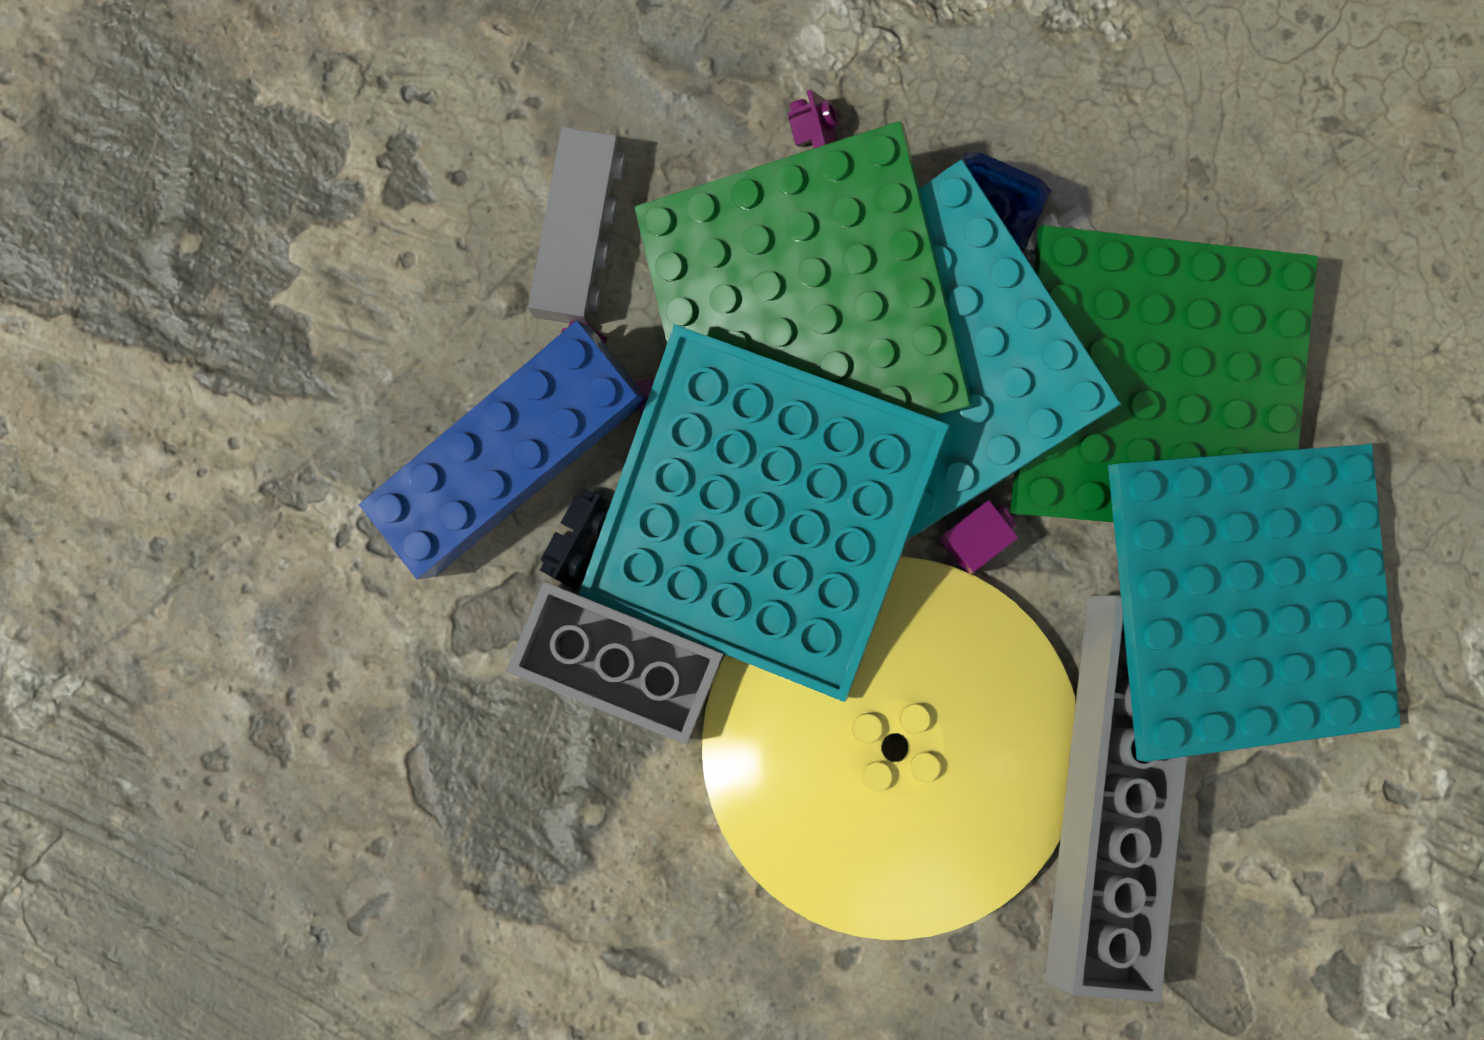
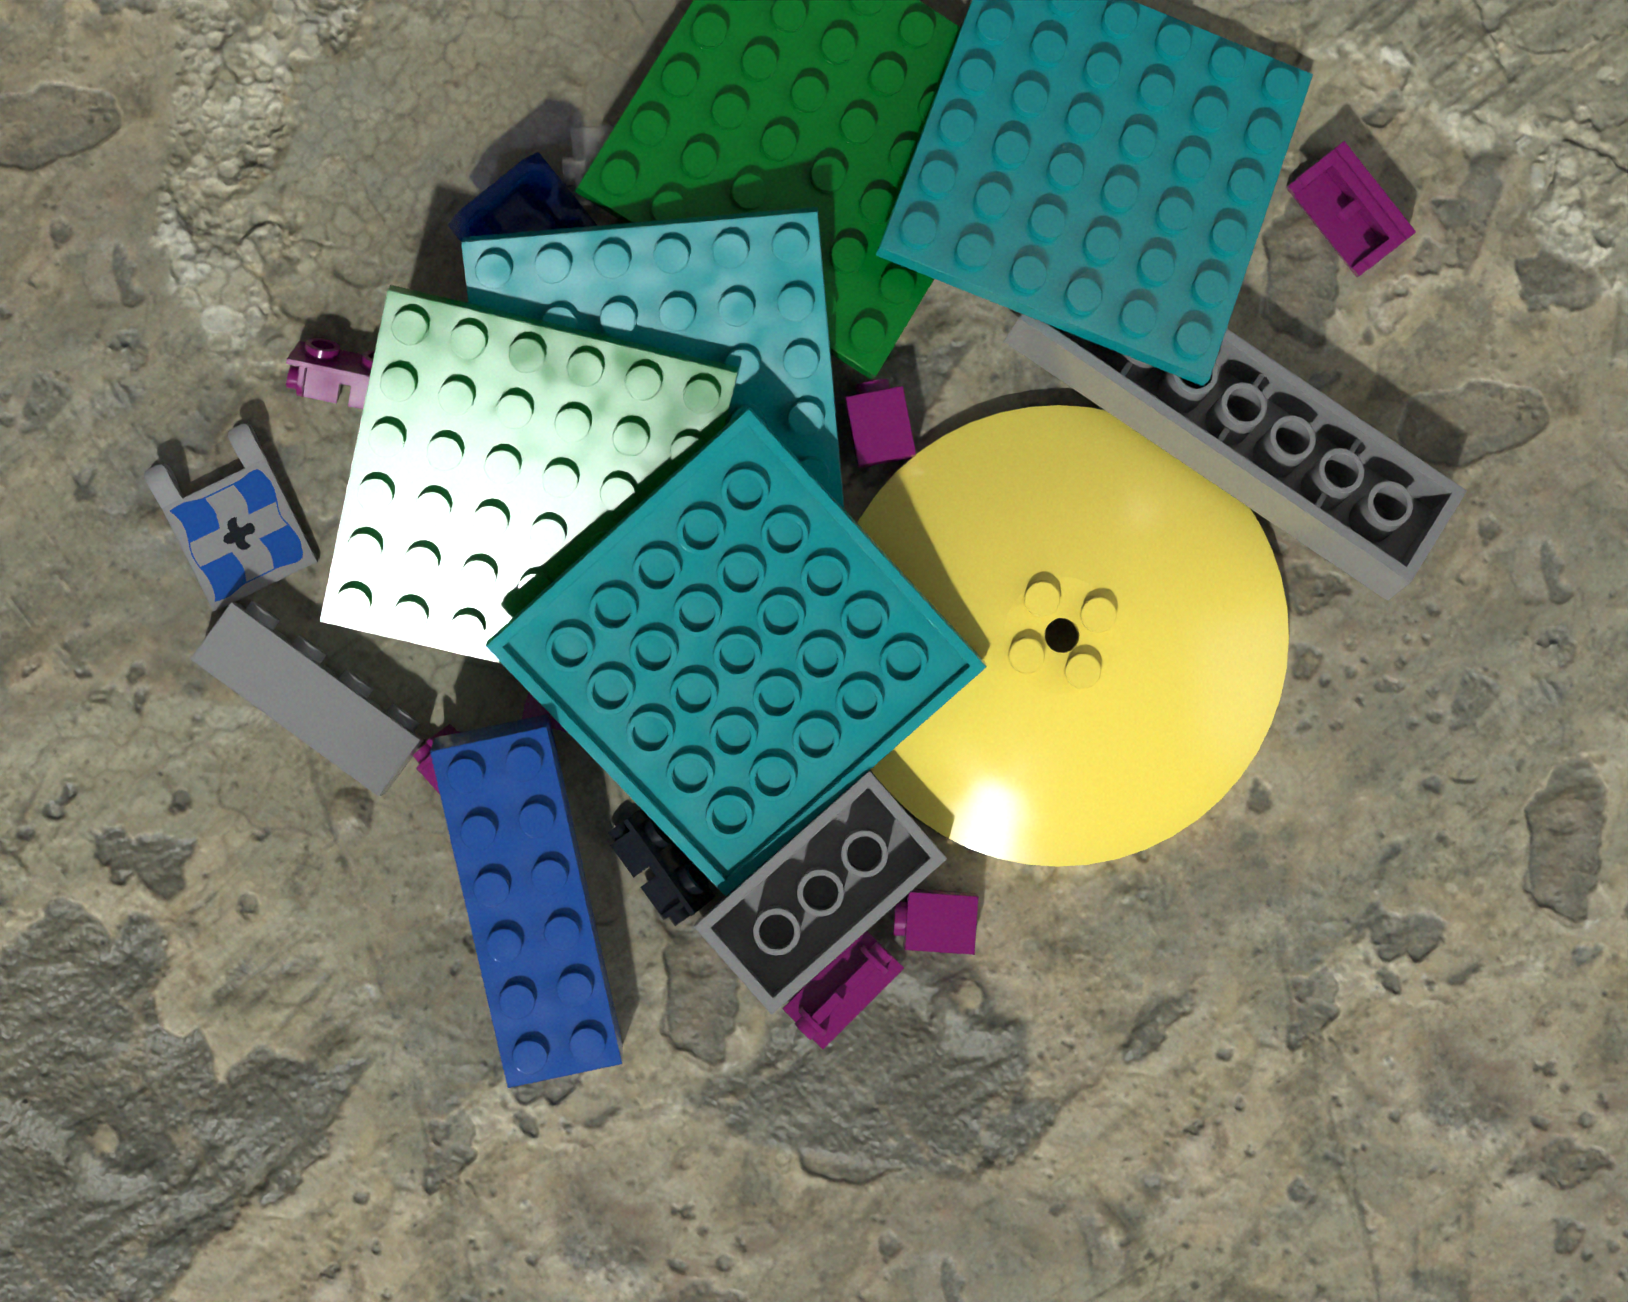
camera: 60 degrees left, 5 degrees up
(552, 717) = (842, 989): none -> magenta hinge
(636, 762) = (937, 921): none -> magenta brick
(670, 120) = (237, 529): none -> light grey flag
(1318, 806) = (1350, 209): none -> magenta hinge

